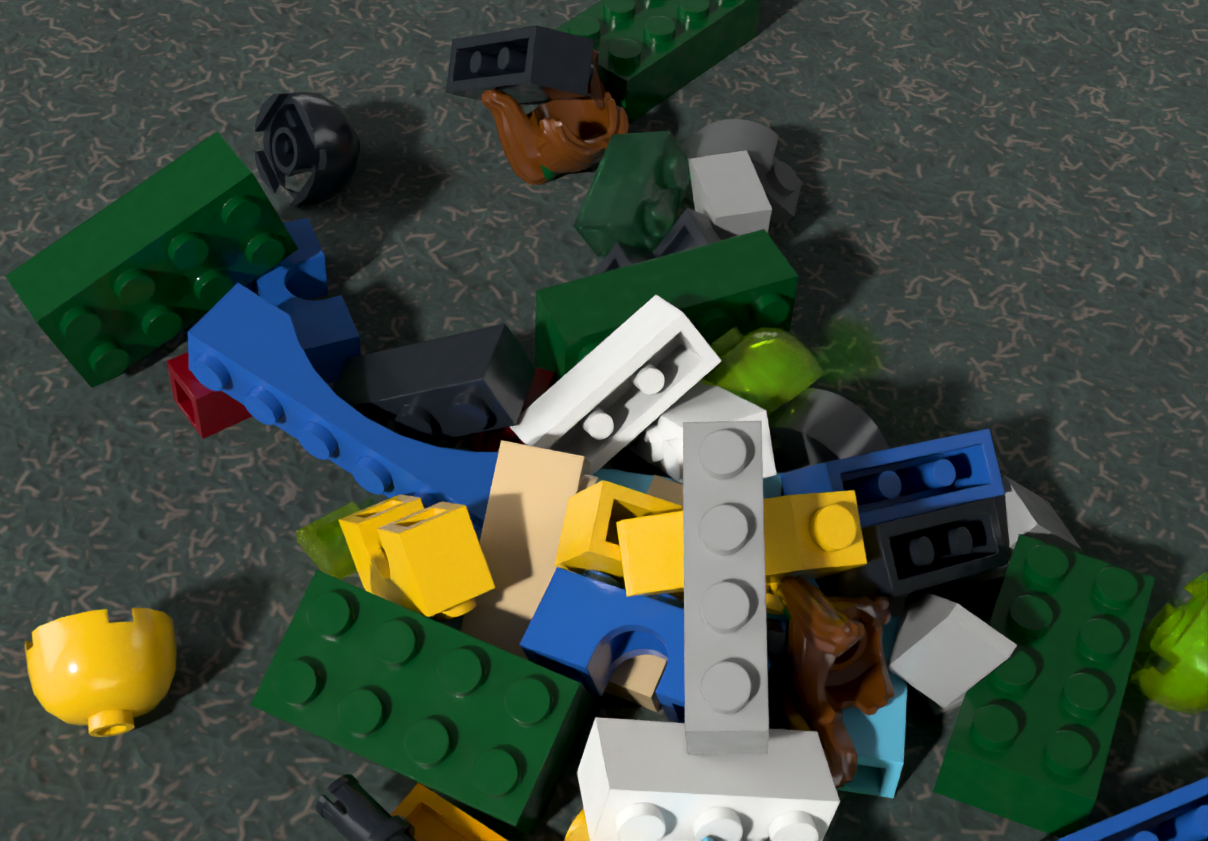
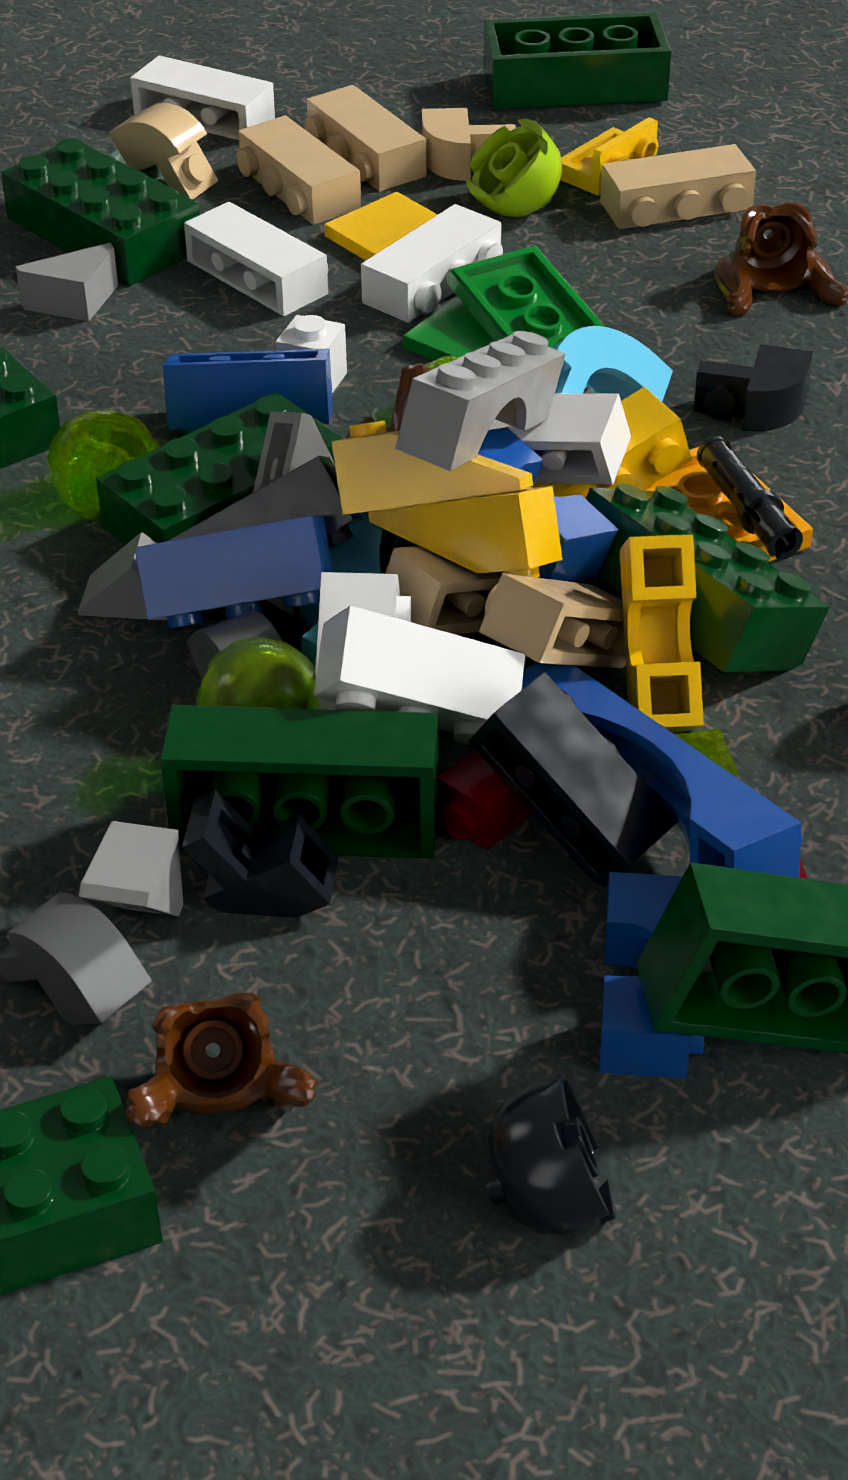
camera: 150 degrees left, 5 degrees down
(522, 62) = (241, 1113): black brick -> none
(634, 192) = (216, 935): clear green brick -> none

